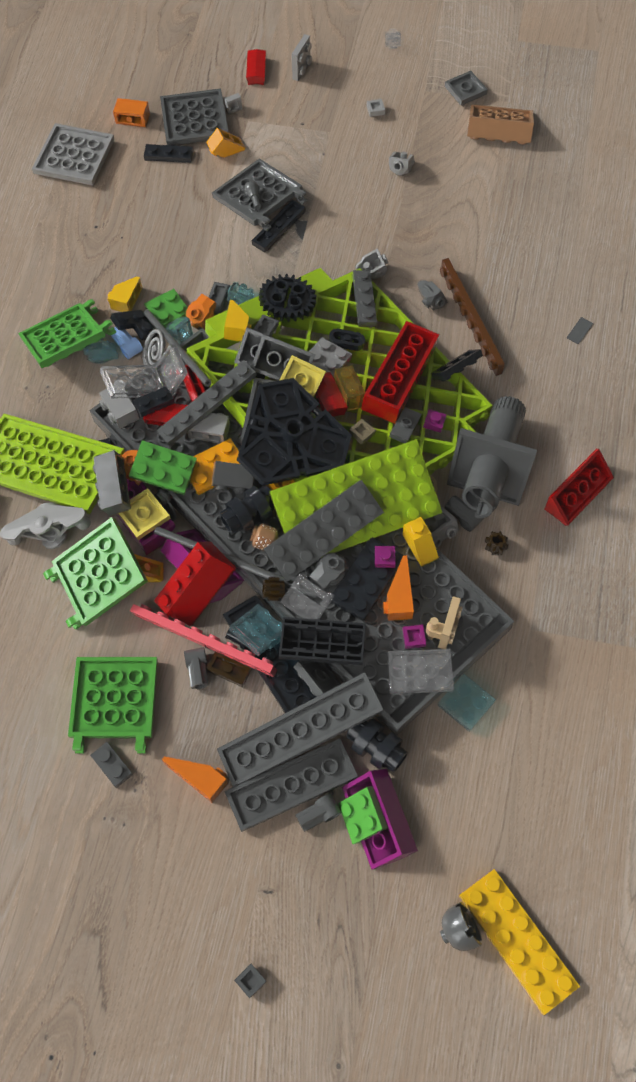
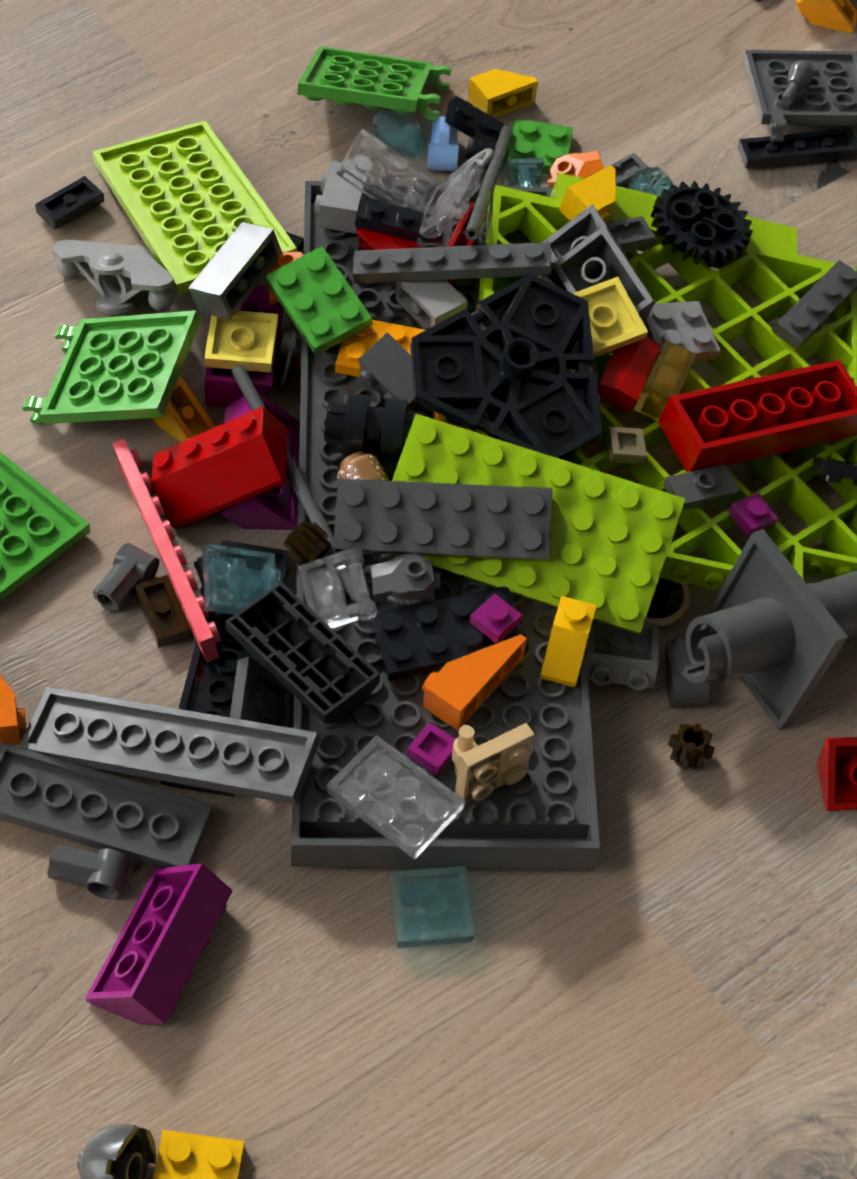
camera: 35 degrees right, 10 degrees down
(347, 339) = (733, 329): black plate -> none
(362, 815) = (138, 916): bright green plate -> none
(384, 749) = (251, 850): black piece -> none

